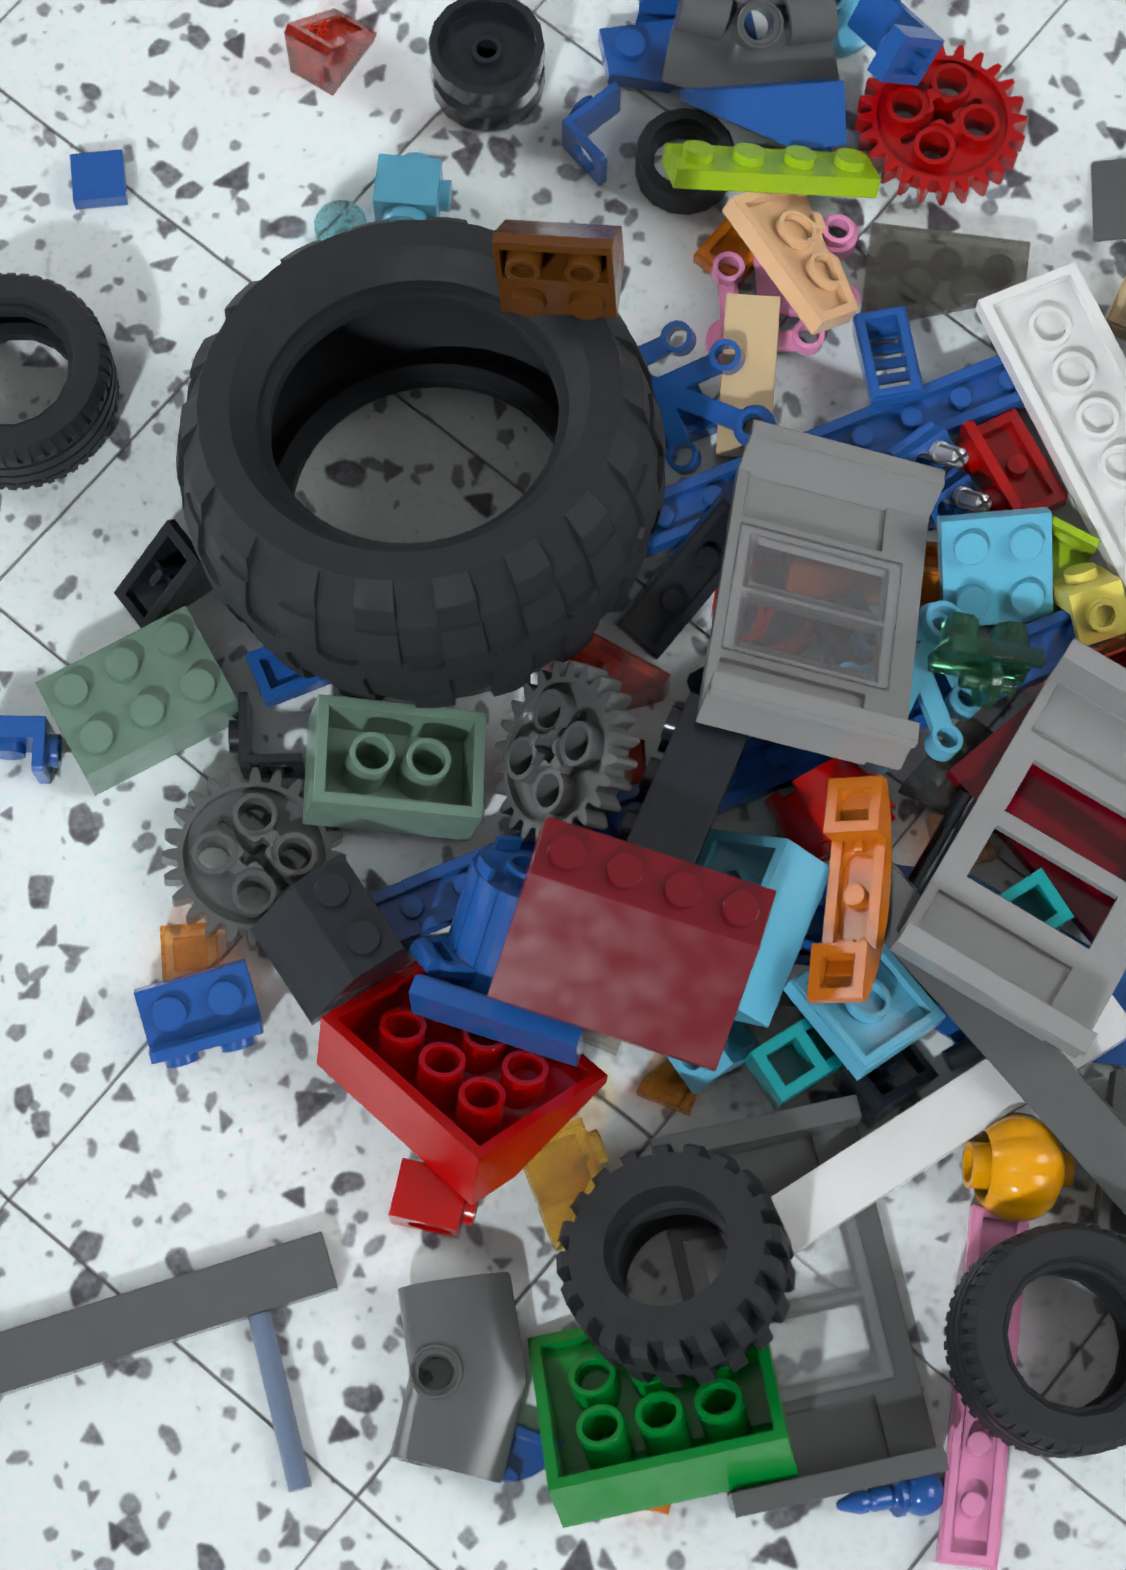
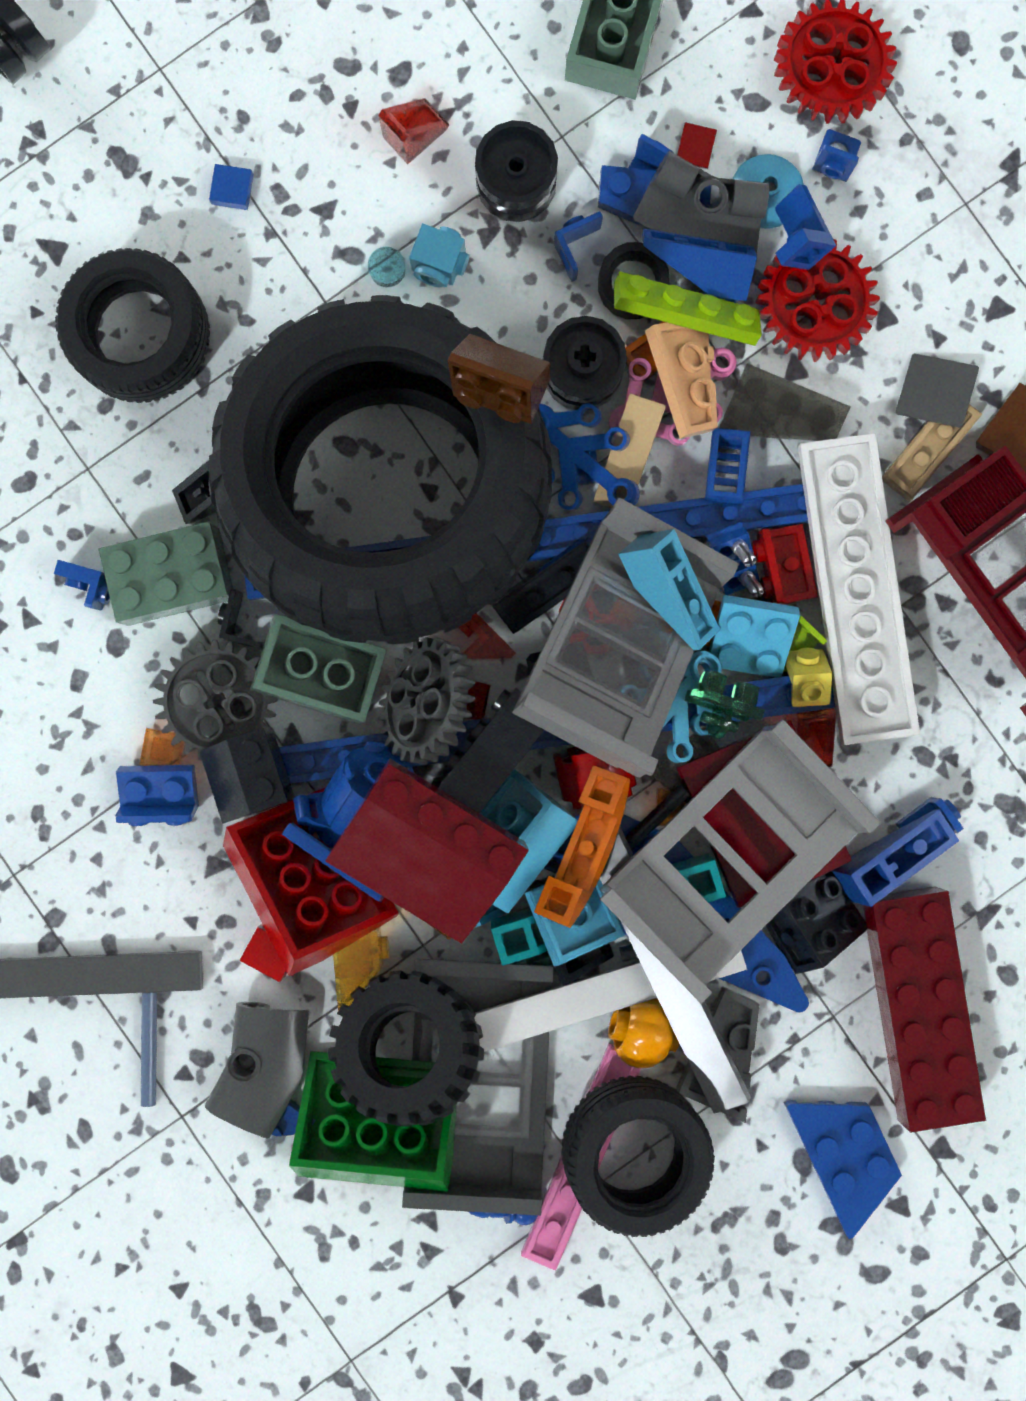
camera: 20 degrees right, 15 degrees up
(662, 273) = (586, 341): none -> black wheel
(855, 512) = (668, 583): none -> medium azure slope

